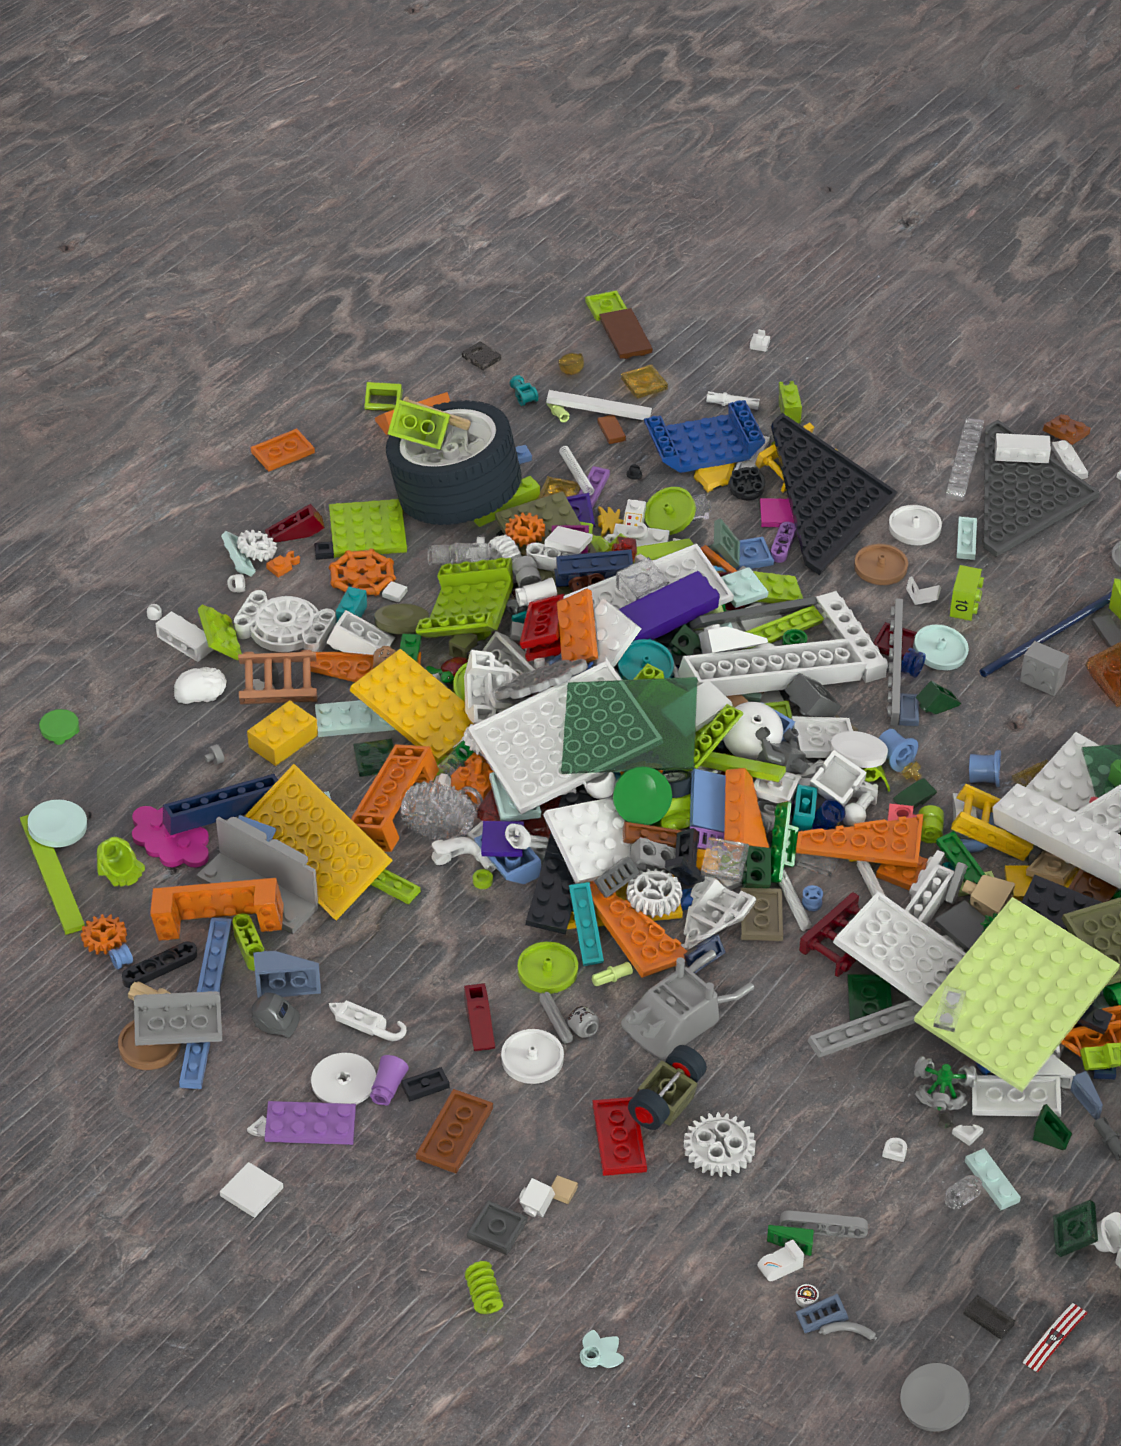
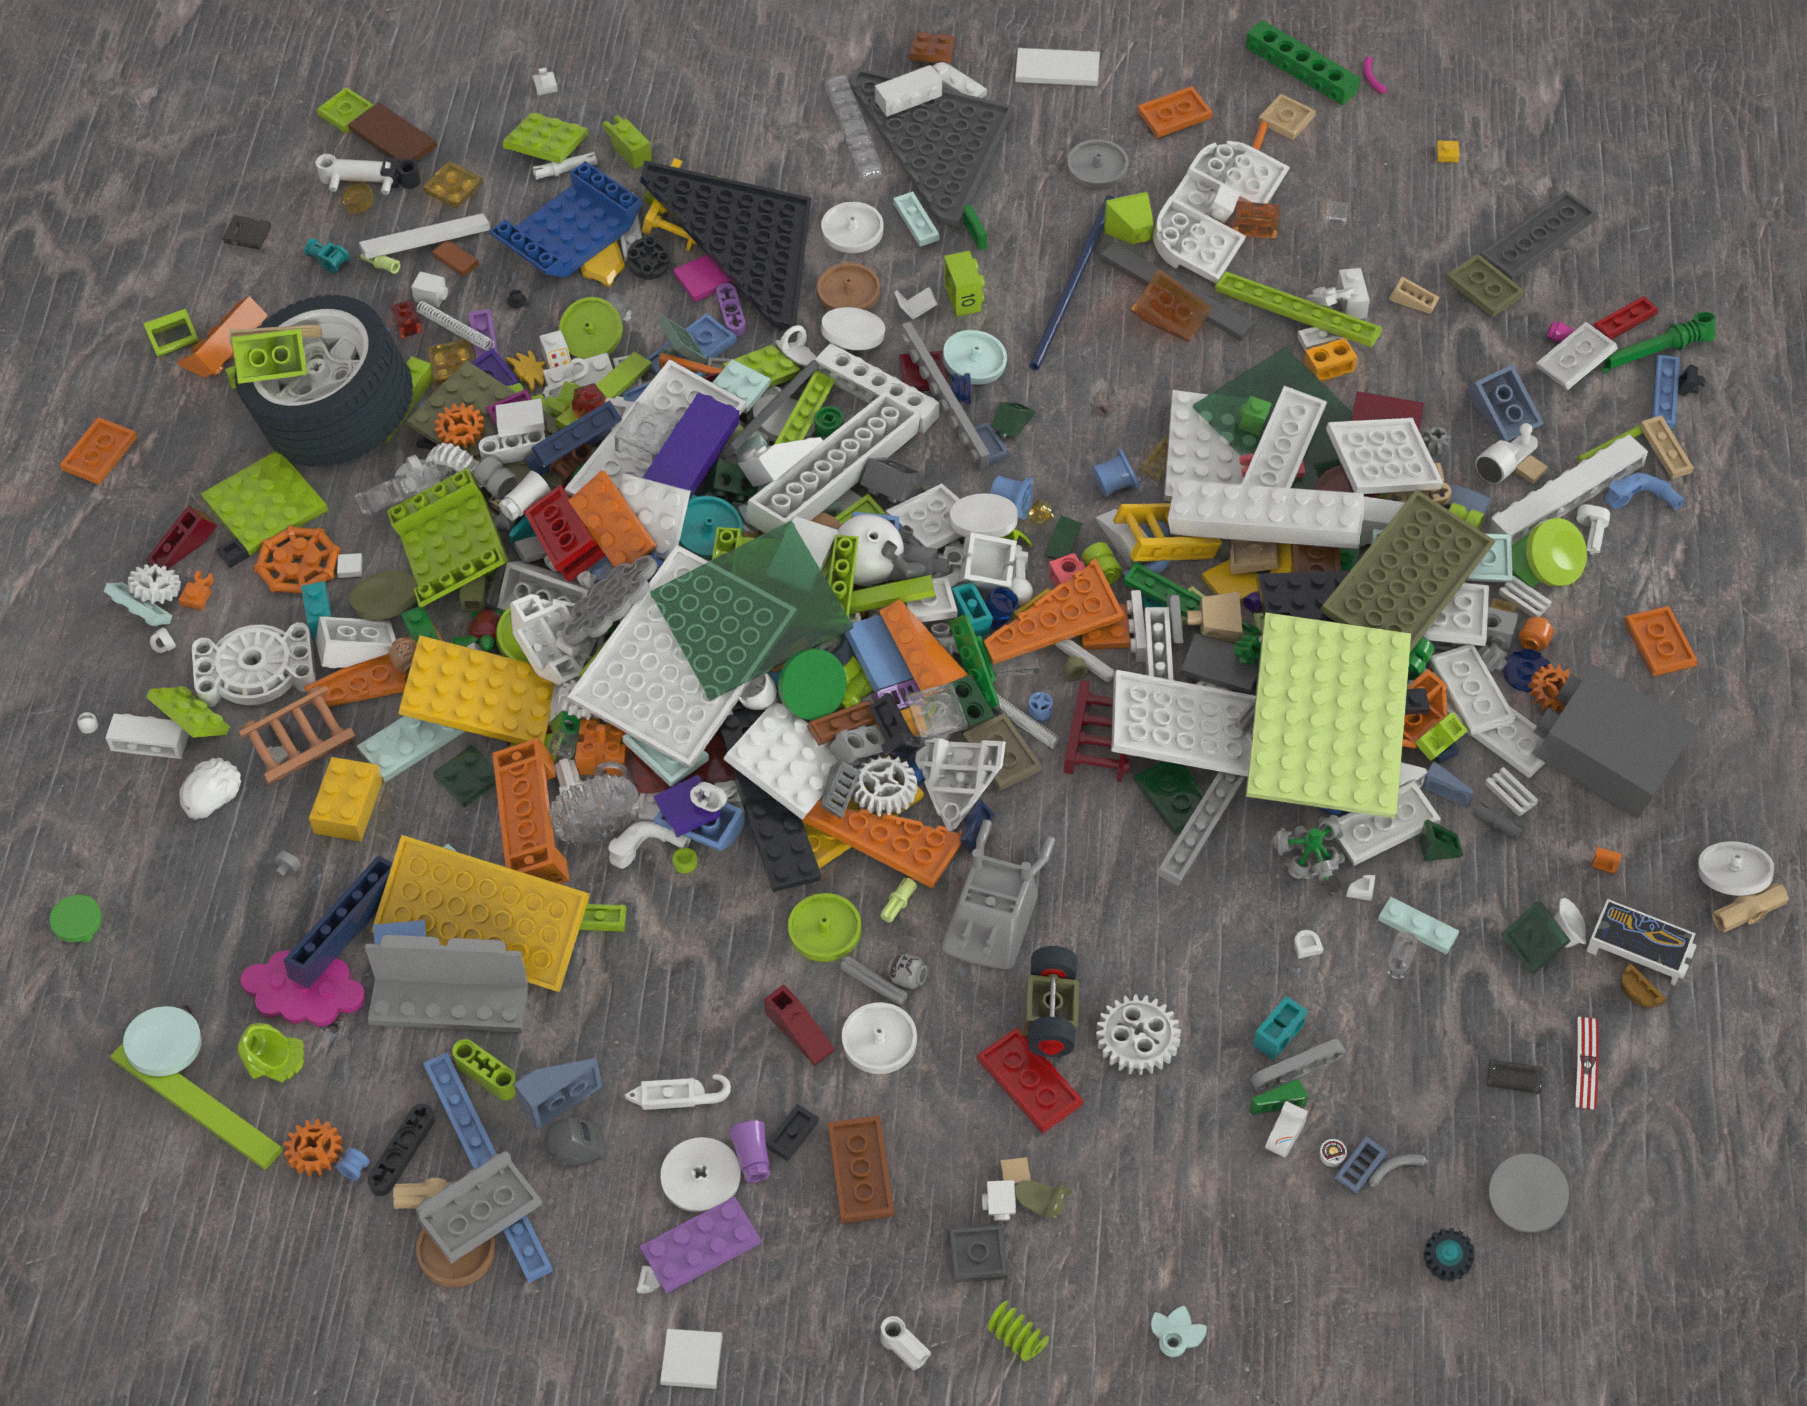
camera: 30 degrees left, 10 degrees up
(216, 900) = (422, 1040): orange plate -> none
(399, 1254) = (904, 1344): none -> white piece
(547, 452) = (406, 318): none -> clear red brick
(568, 1214) = (1042, 1197): none -> olive piece
(577, 440) = (429, 289): none -> white brick
(586, 924) = (838, 858): teal plate -> none
(604, 356) = (388, 172): none -> white piece
(731, 376) = (545, 137): none -> lime plate
(808, 588) = (796, 351): none -> white piece
(827, 1190) = (1280, 1028): none -> teal brick
(841, 1405) = (1449, 1254): none -> black wheel
(857, 884) = (1075, 668): none -> olive tile
(862, 589) = (853, 328): none -> white piece
(949, 1009) = (1282, 767): clear piece -> none
(1006, 561) = (975, 227): none -> green tile
(1044, 668) = (1097, 333): light grey brick -> none

